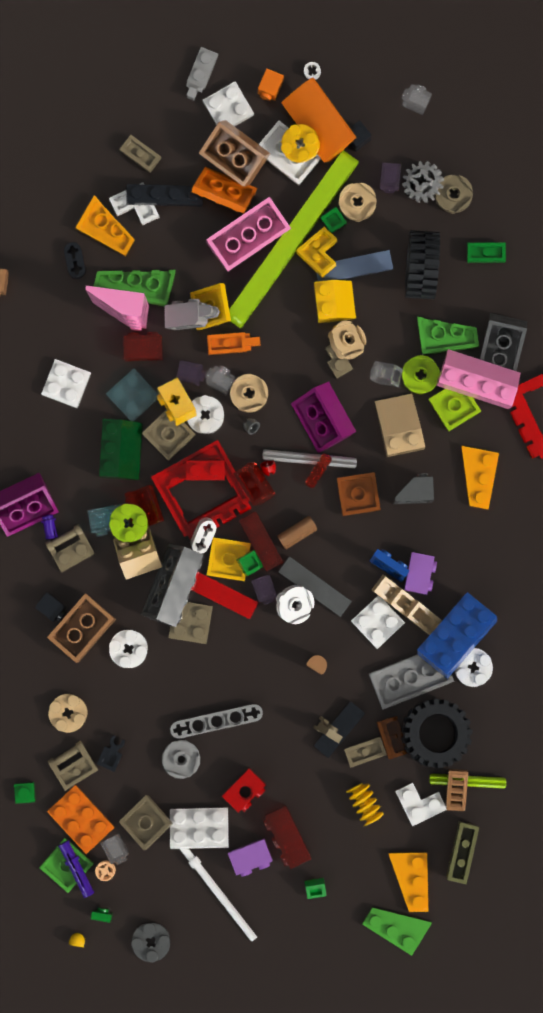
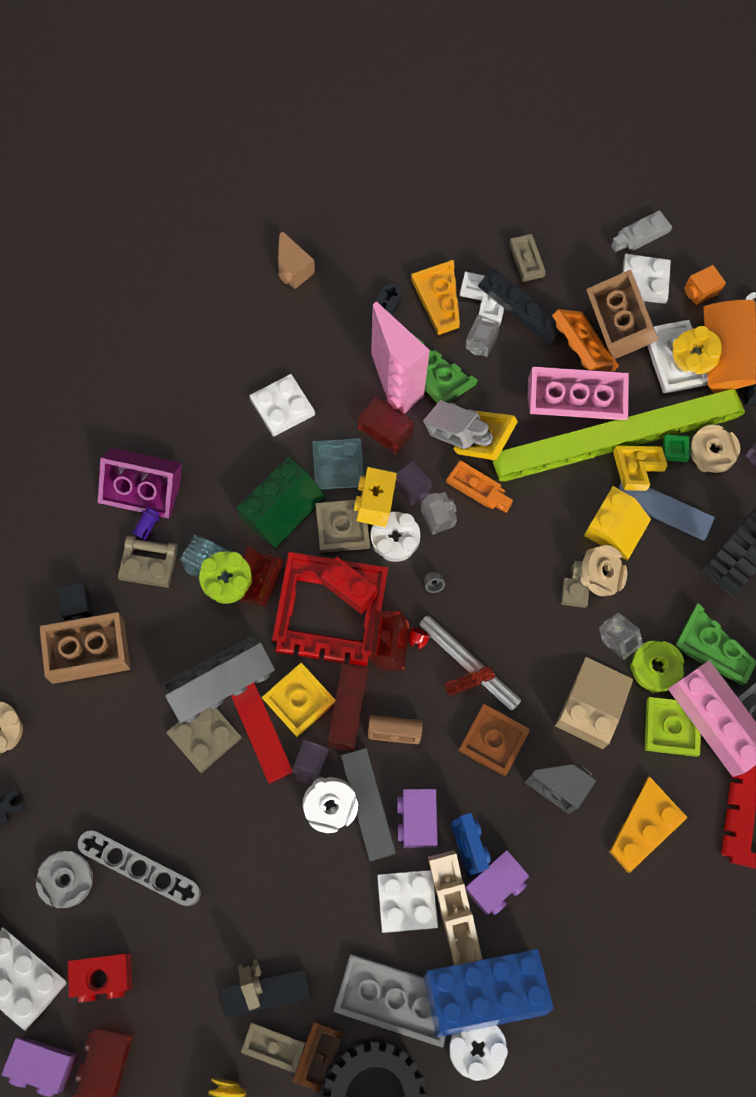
camera: 30 degrees right, 15 degrees down
(131, 638) = (124, 723): white plate -> none
(138, 556) = (207, 620): tan slope -> none
(156, 238) = (482, 335): none -> clear brick
(199, 534) = (295, 658): white beam -> none
(249, 563) = (317, 719): green plate -> none
(255, 384) = (460, 562): tan plate -> none
(317, 663) = (300, 893): medium nougat brick -> none
(323, 417) = (518, 630): magenta slope -> none
(349, 572) = (419, 818): none -> medium lavender brick

